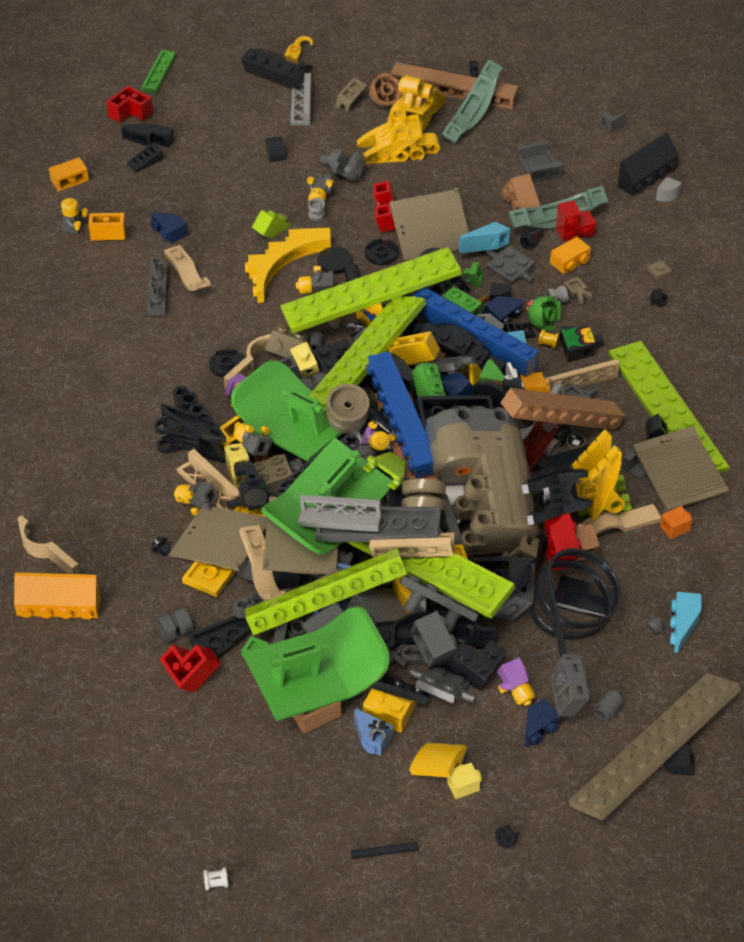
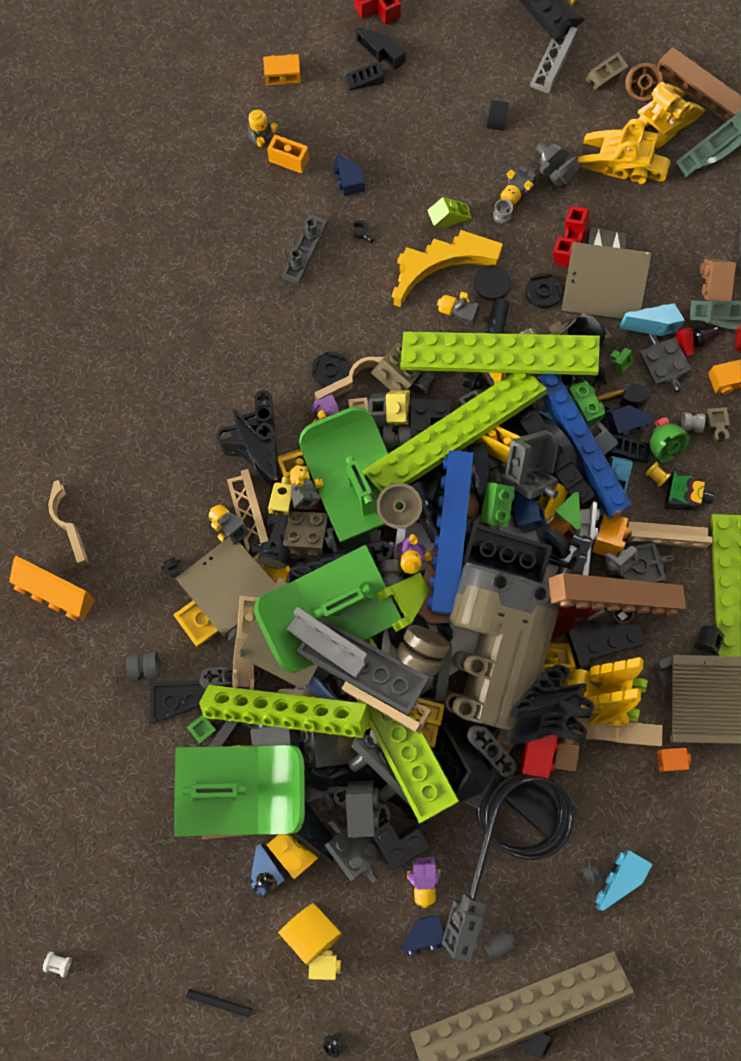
camera: 25 degrees right, 25 degrees up
(185, 268) = (342, 236): tan piece -> none
(190, 668) = (130, 725): red brick -> none
(200, 264) = (359, 235): none -> black piece
(439, 340) = (531, 455): none -> dark grey panel
(511, 540) = (483, 747): none -> dark grey beam
(517, 242) = (685, 338): none -> red cone

